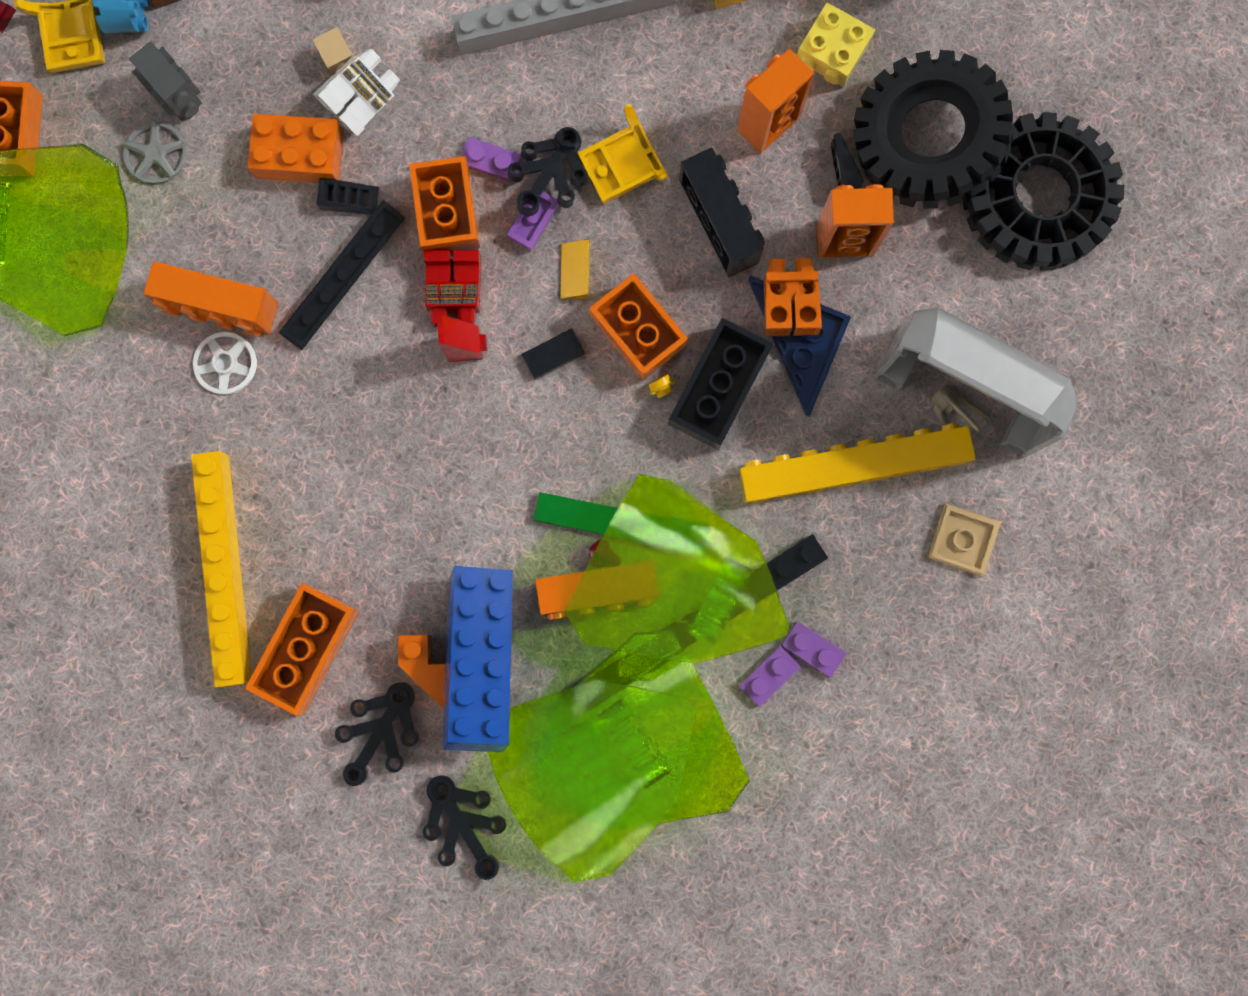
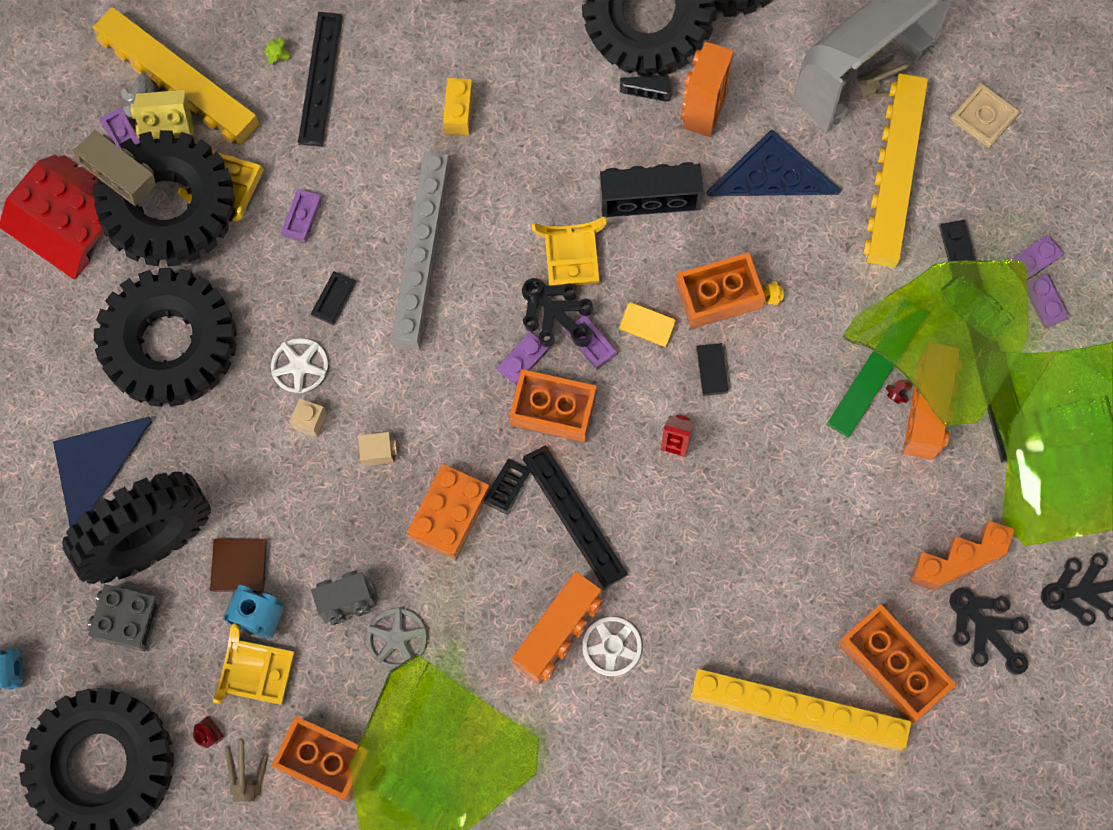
camera: 65 degrees left, 10 degrees down
(357, 91) = (422, 440): white hips -> none
(452, 296) = (622, 427): red hips -> none
(478, 660) = (960, 514): blue brick -> none
(720, 384) = (792, 245): black brick -> none
(774, 99) = (582, 110): orange brick -> none
(788, 289) = (743, 165): orange hips -> none
(835, 44) = (543, 55): light yellow brick -> none

